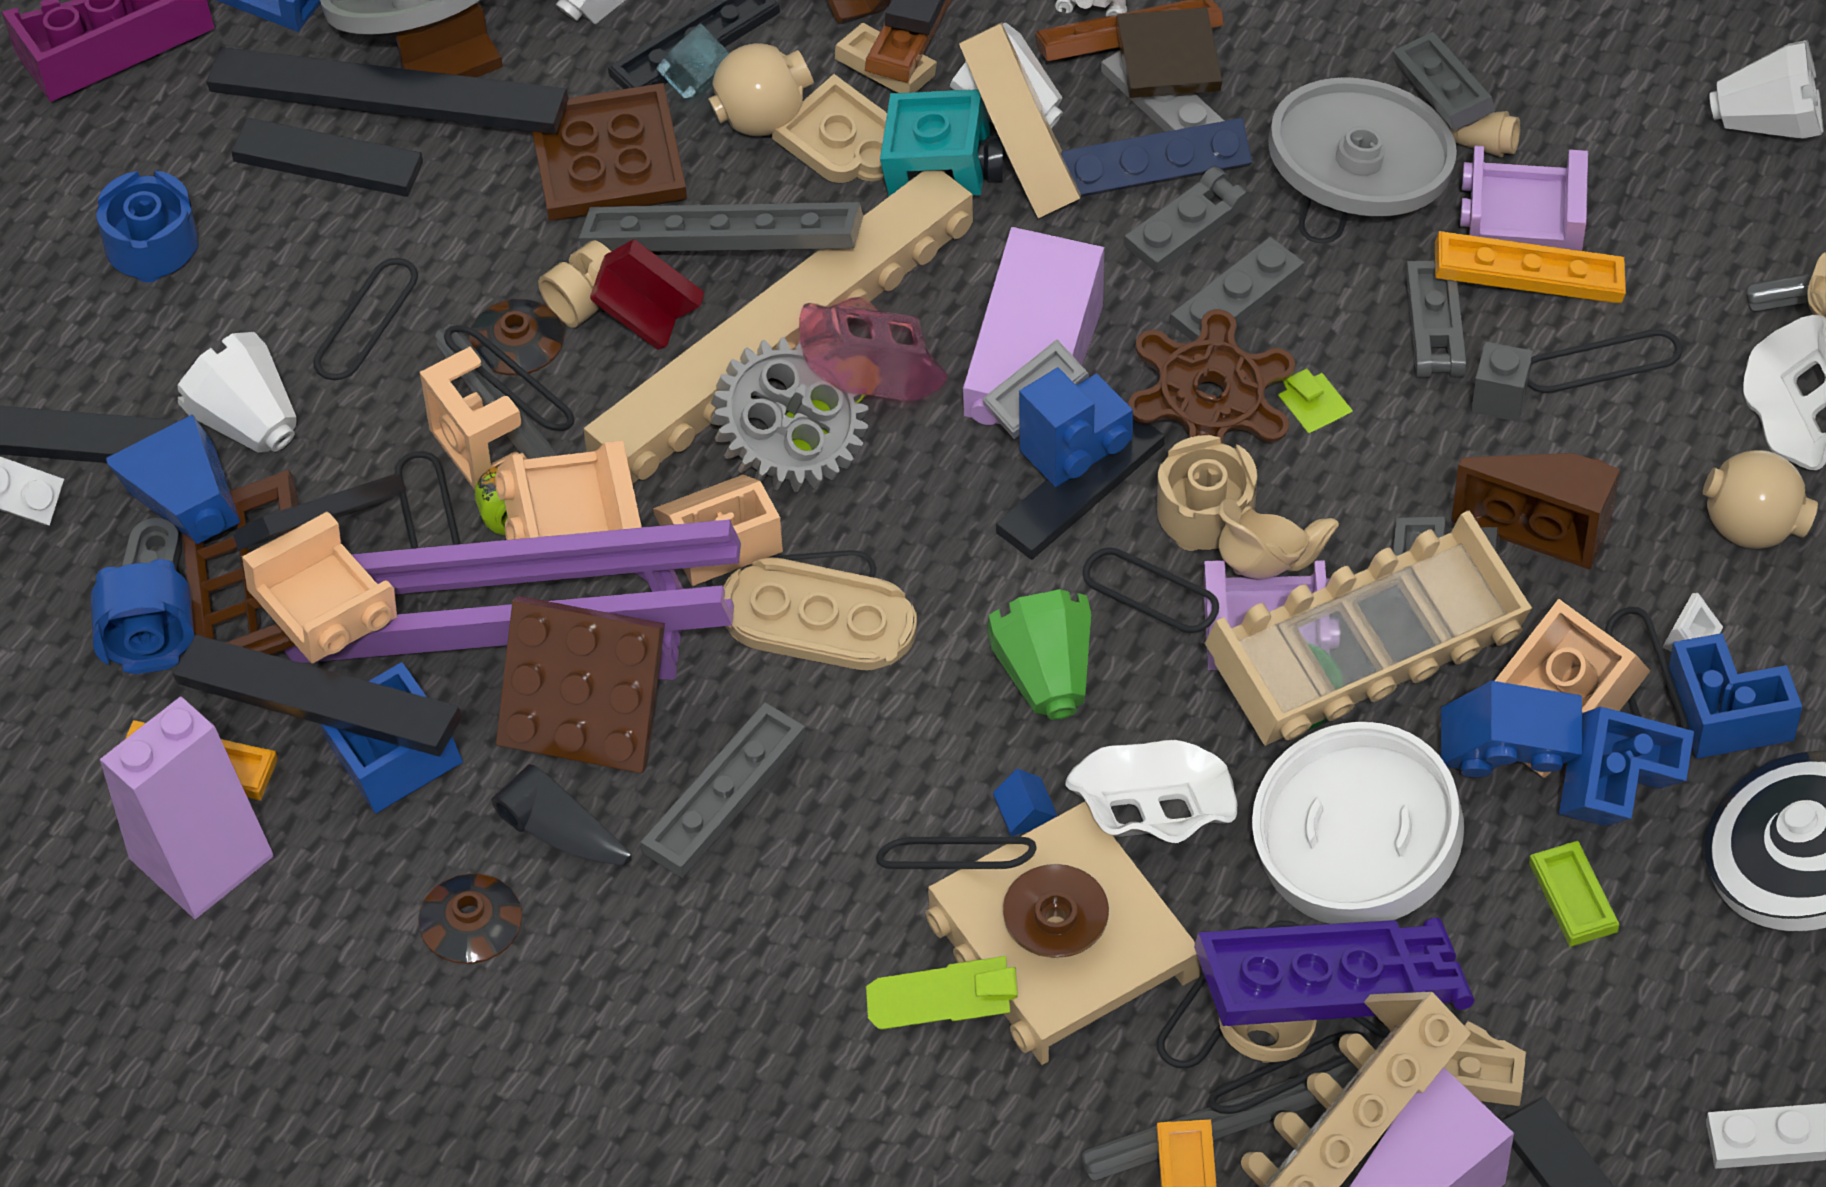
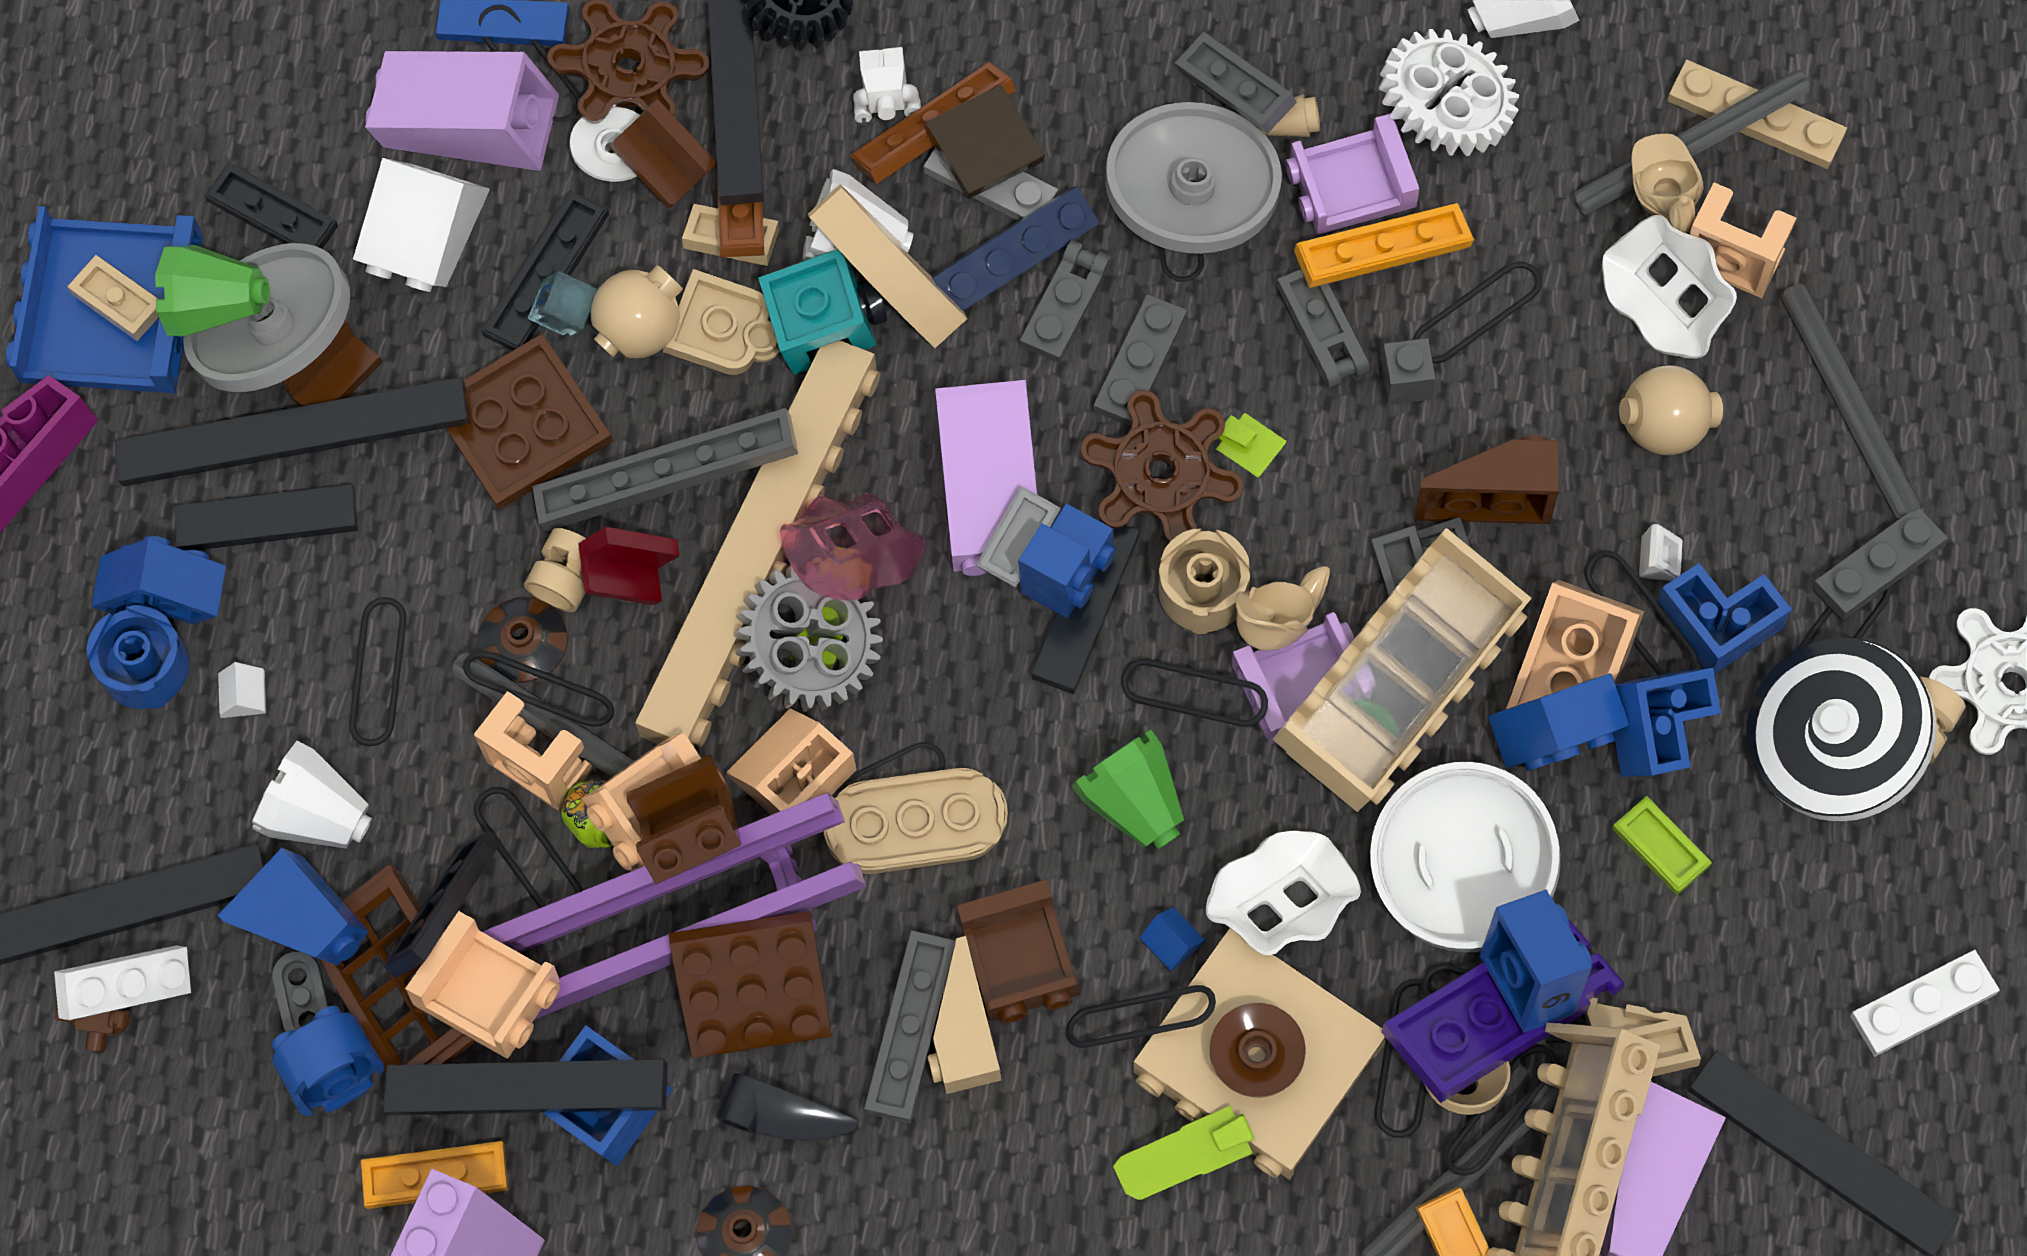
camera: 20 degrees left, 15 degrees up
(208, 164) = (160, 577): none -> blue brick
(230, 290) = (241, 690): none -> white slope
(582, 505) = (684, 819): none -> reddish brown panel
(772, 806) = (962, 1033): none -> tan slope
(863, 758) = (1018, 952): none -> reddish brown panel
(1380, 922) = (1536, 960): none -> blue brick
(1657, 154) = (1468, 114): none -> white gear

